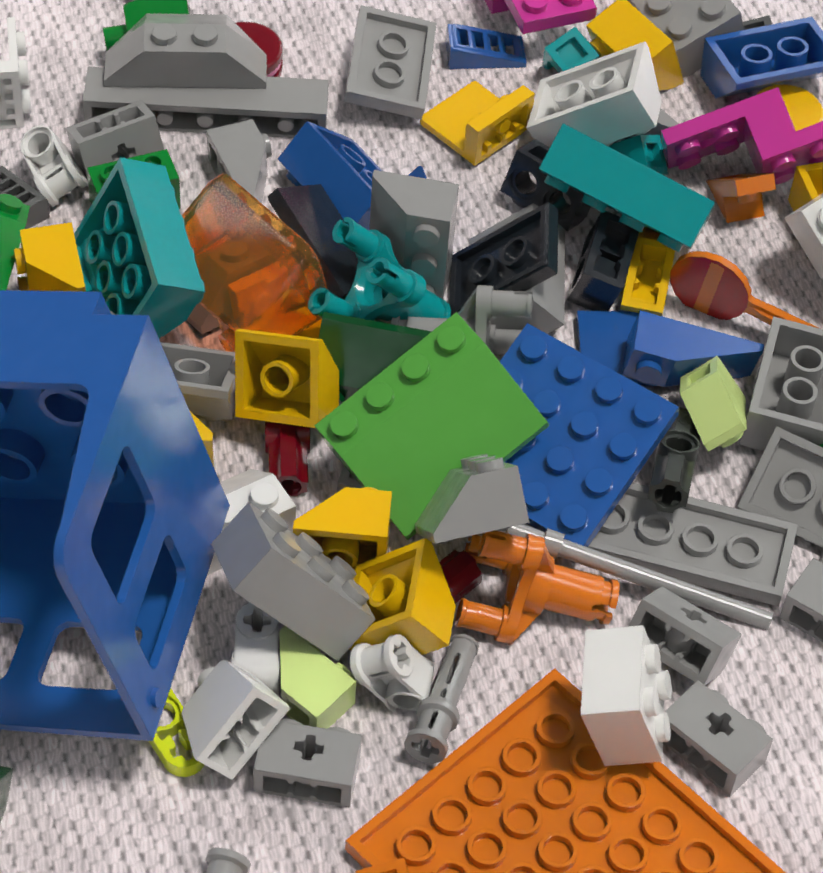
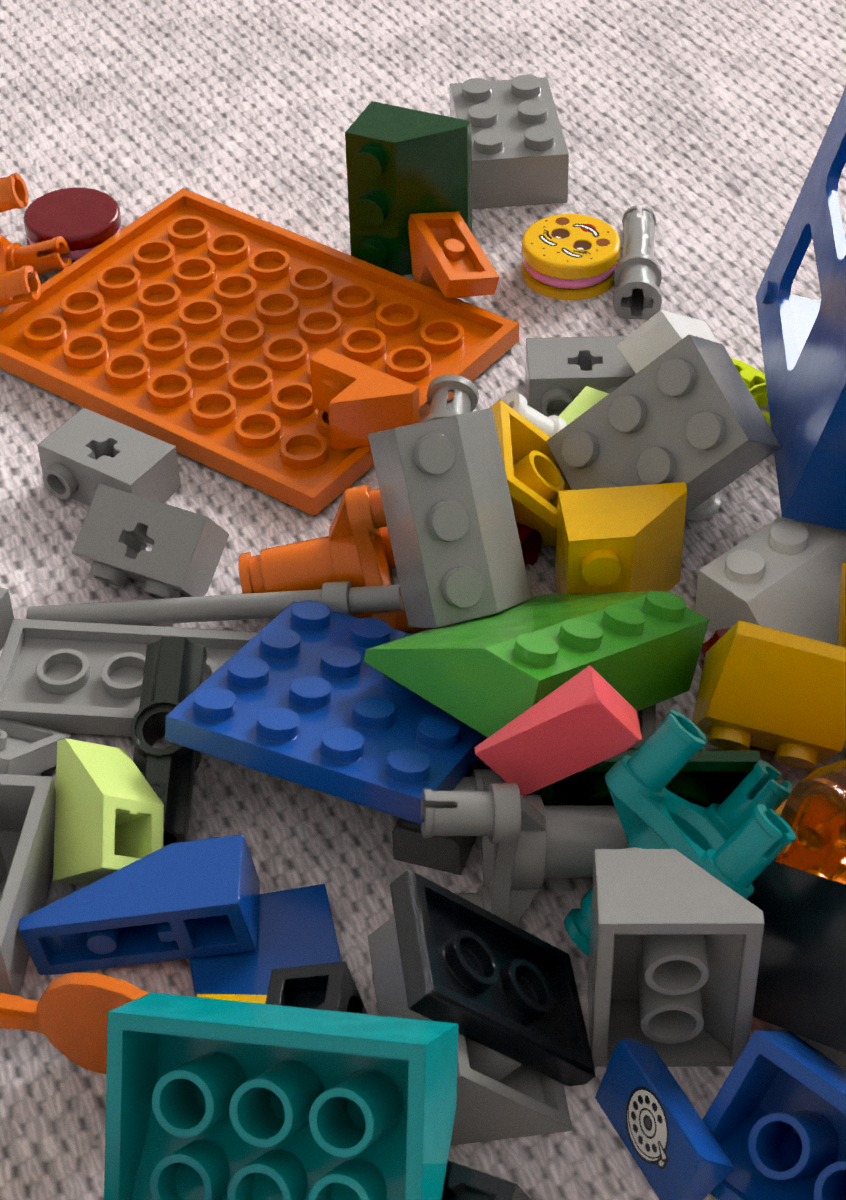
camera: 175 degrees right, 10 degrees down
(436, 298) = (562, 734): none -> coral slope
(500, 722) = (359, 399): none -> orange slope
(625, 695) = (221, 402): white brick -> none

